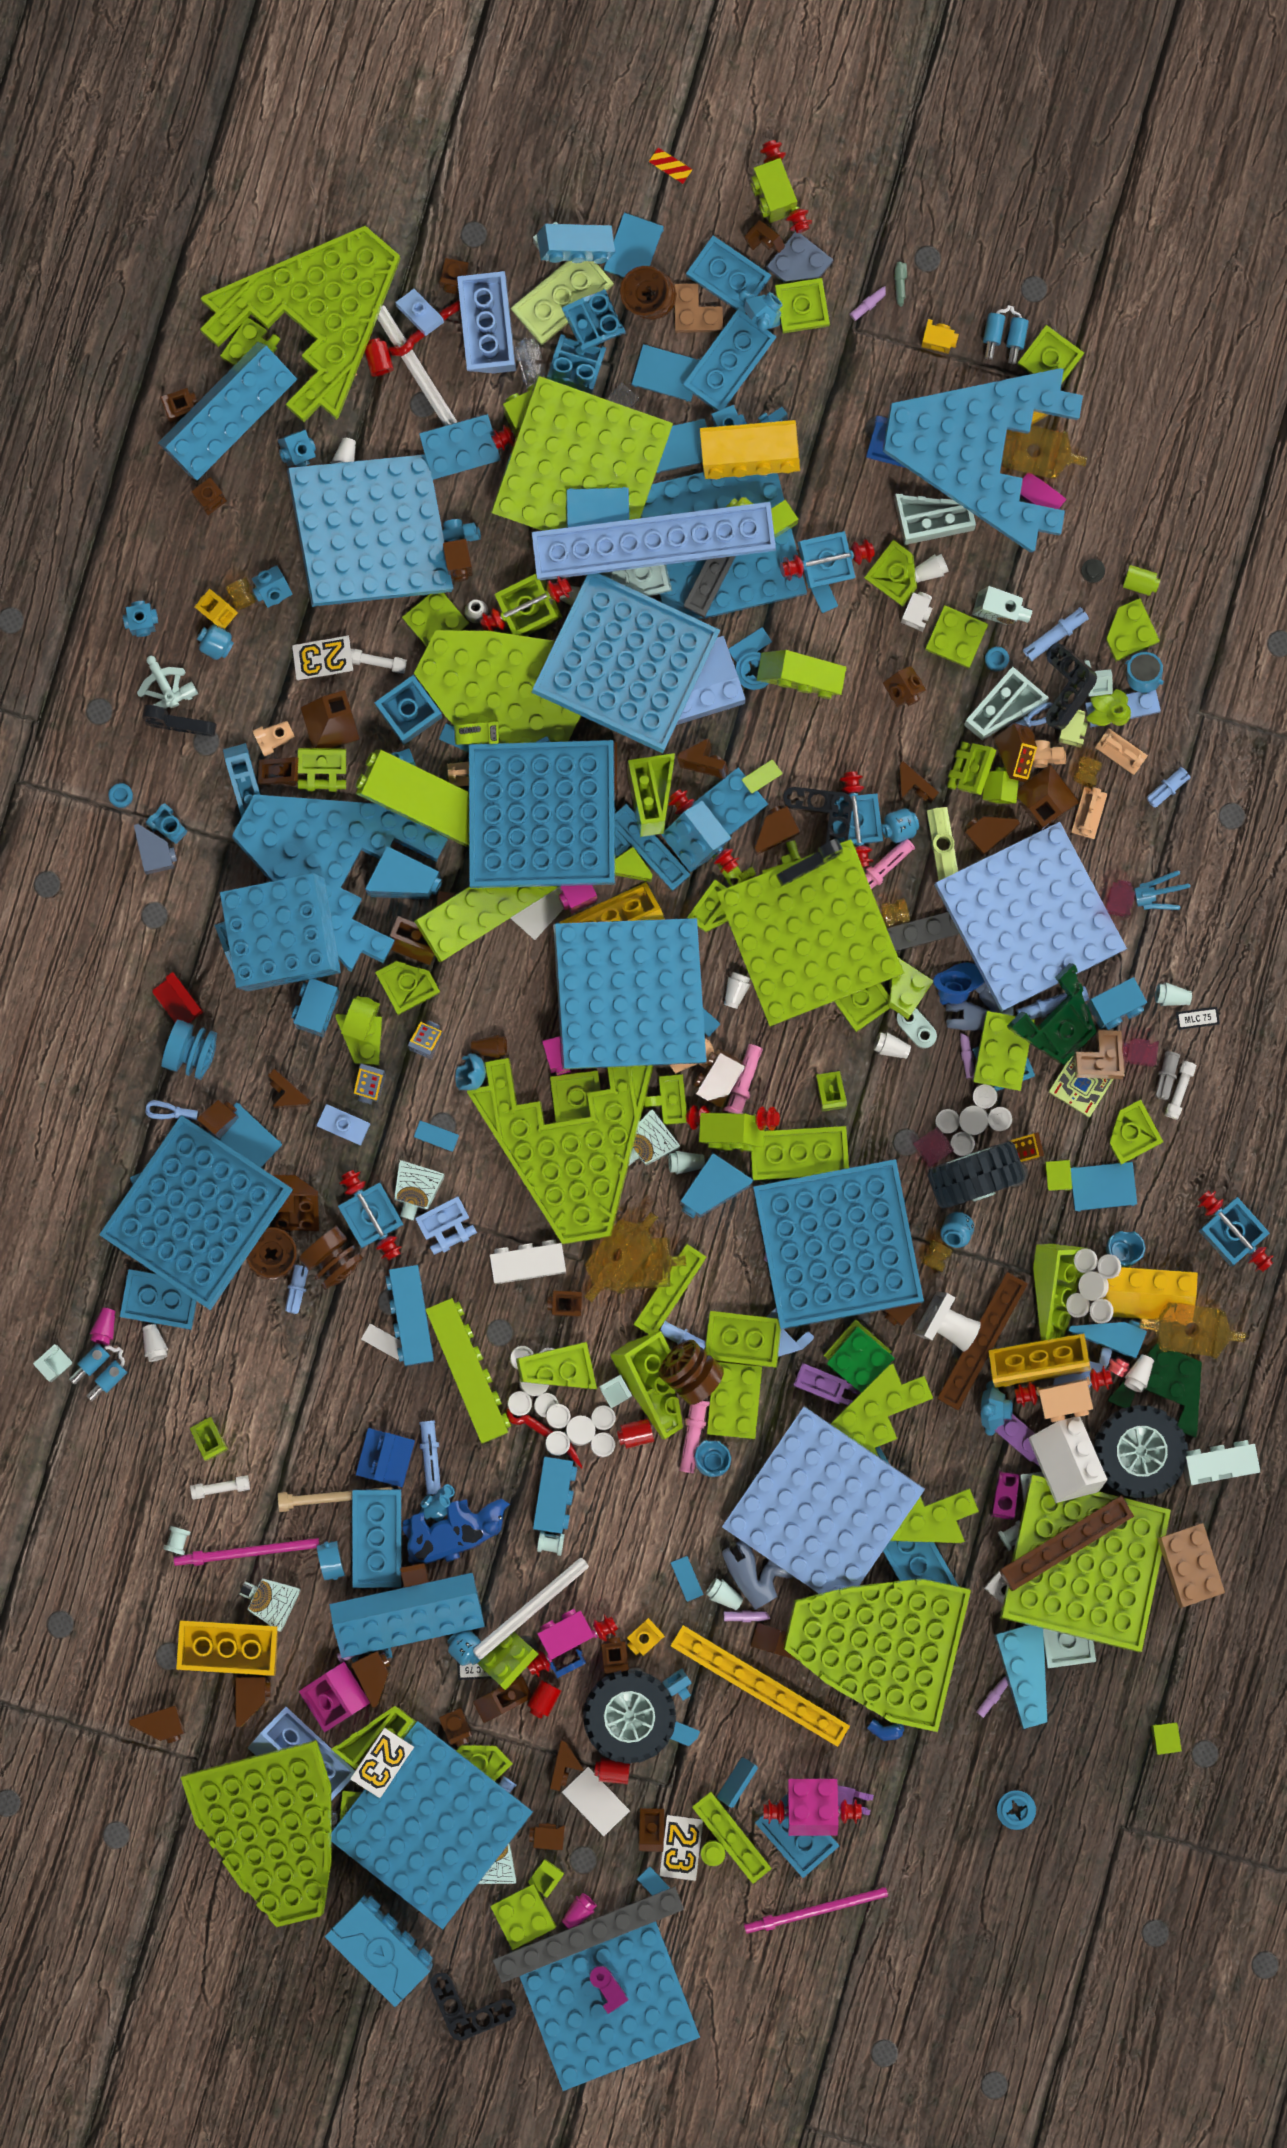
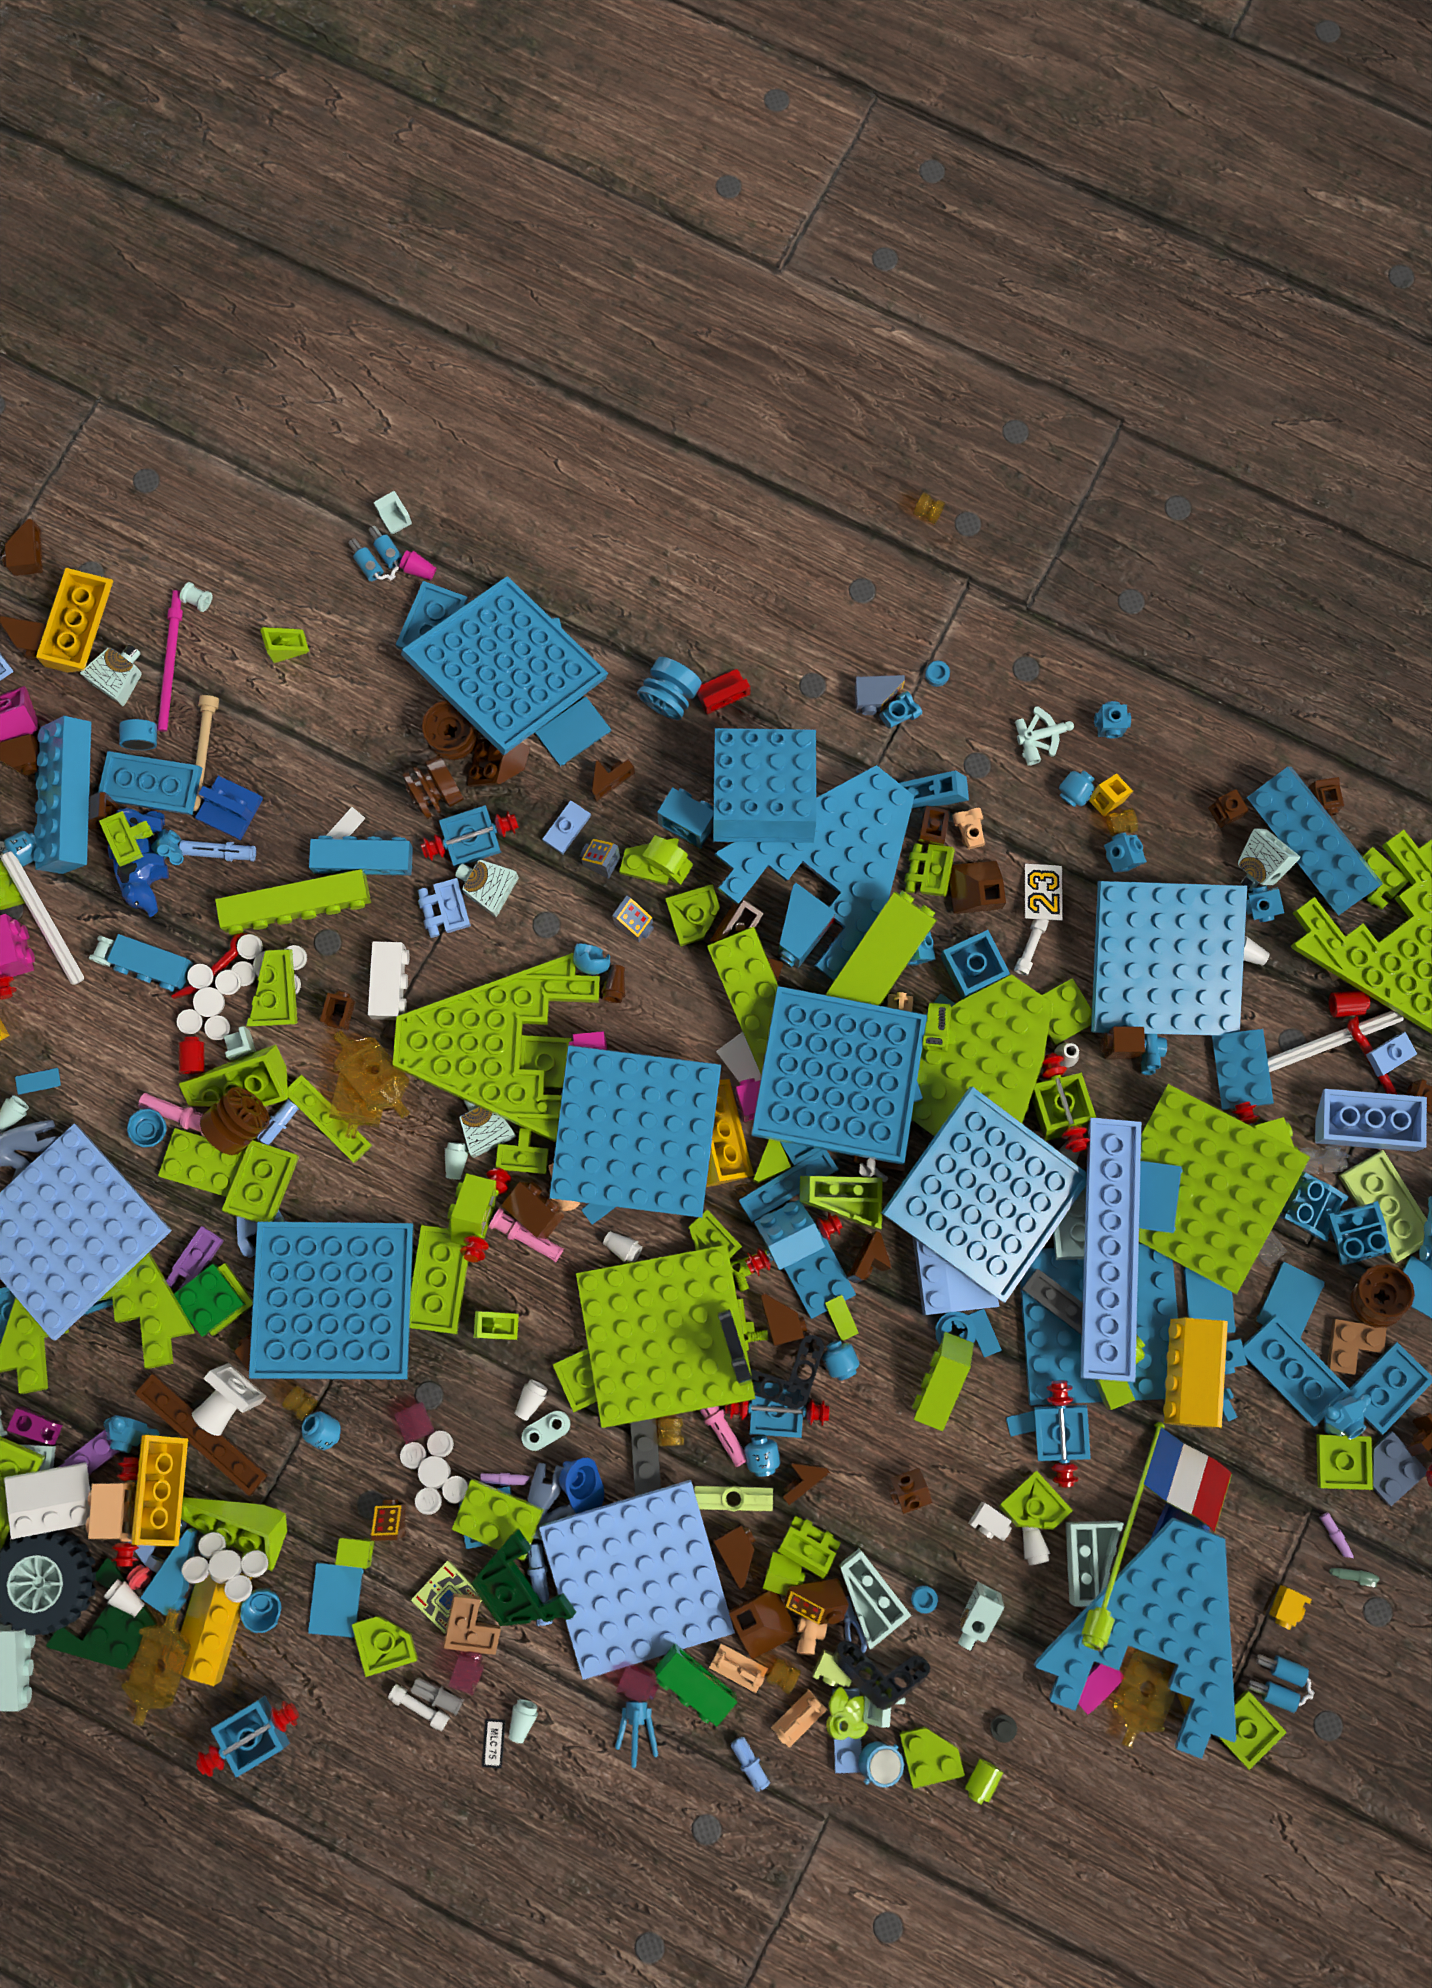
camera: 105 degrees right, 5 degrees down
(154, 1344) = (390, 609): white cone -> none
(159, 718) = (1000, 737): black beam -> none
(187, 1113) = (612, 672): light blue piece -> none
(199, 1491) = (236, 665): white bar -> none
(219, 1118) = (594, 703): reddish brown slope -> none
(254, 454) = (1265, 859): none -> light aqua torso
(296, 1289) = (410, 751): light blue axle -> none
(436, 1136) = (537, 916): dark azure sticker -> none
(441, 1540) = (123, 837): none -> lime plate
(622, 772) = (870, 1170): none -> white hand
(713, 1187) = (420, 1182): dark azure slope -> none
(800, 770) = (840, 1360): none -> dark azure head
(847, 446) = (1182, 1480): none -> flag
(907, 990) = (585, 1429): lime wing -> none
(956, 637) = (955, 1559): lime plate -> none
(976, 1175) = (367, 1462): black wheel -> none
(1055, 634) = (945, 1681): light blue pin -> none
(1111, 847) = (695, 1686): none -> green brick
(1117, 1003) = (522, 1657): dark azure brick -> none

